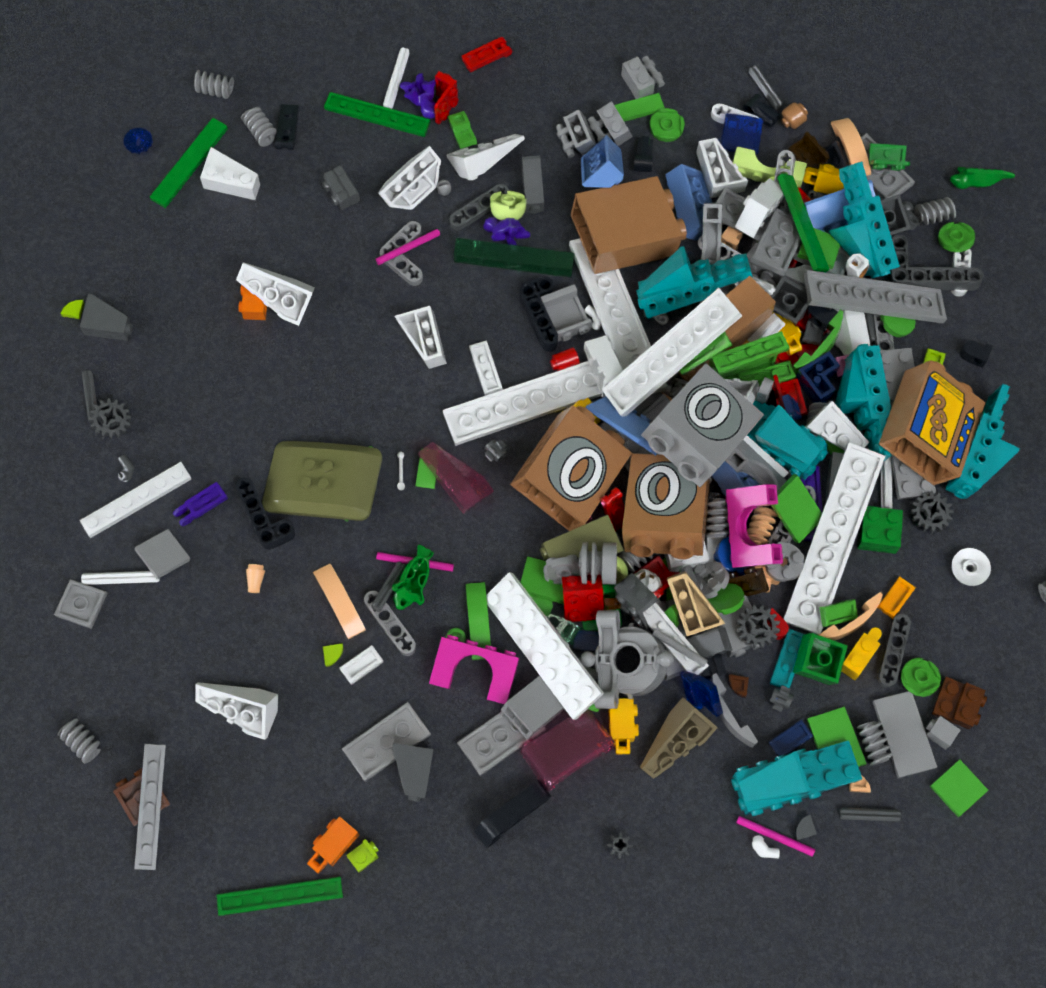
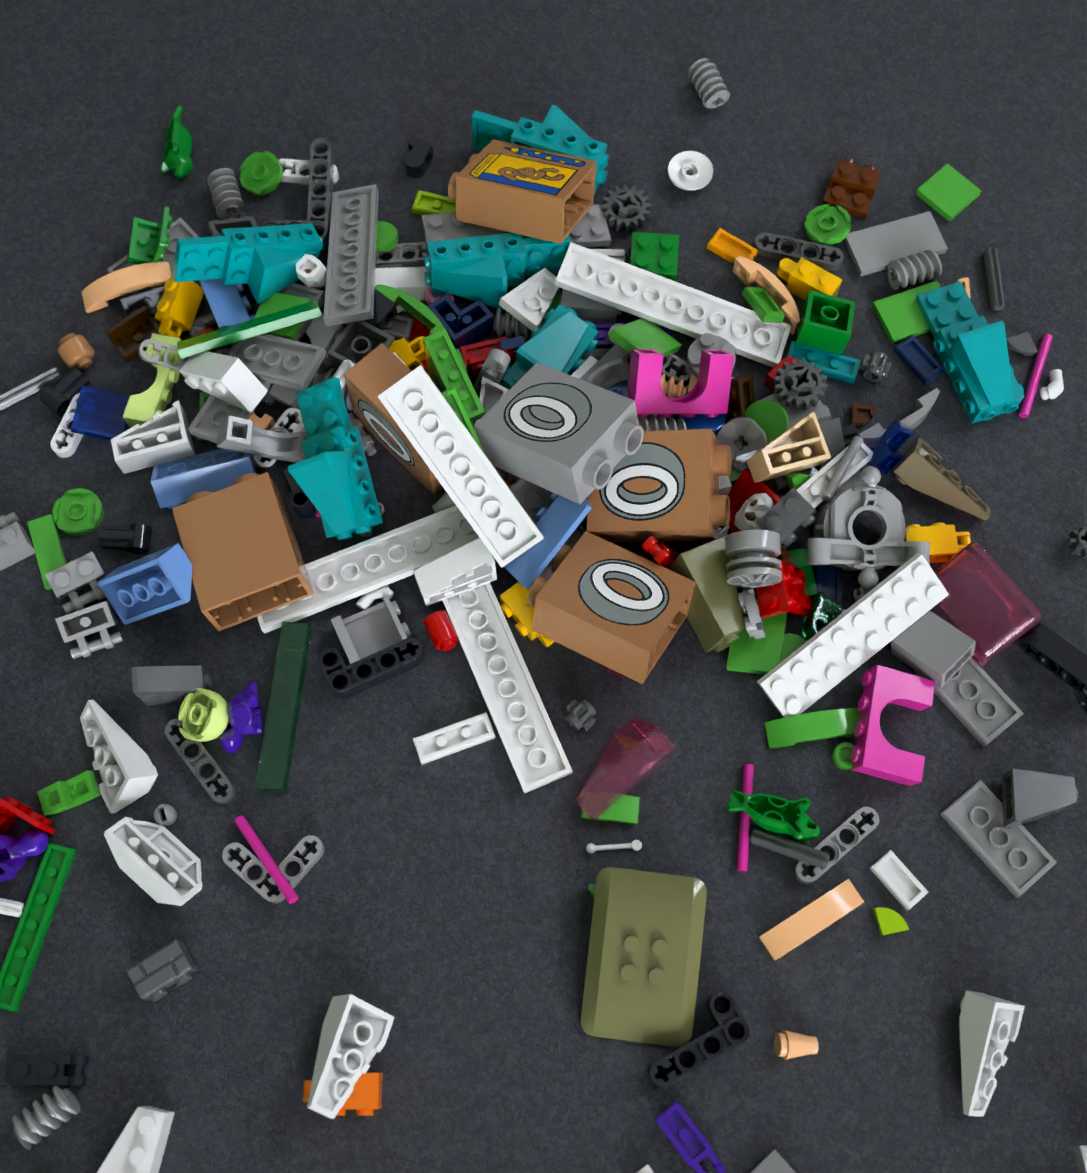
camera: 90 degrees left, 0 degrees up
(423, 333) = (410, 824): white wedge -> none
(942, 732) = (890, 203): light grey brick -> none

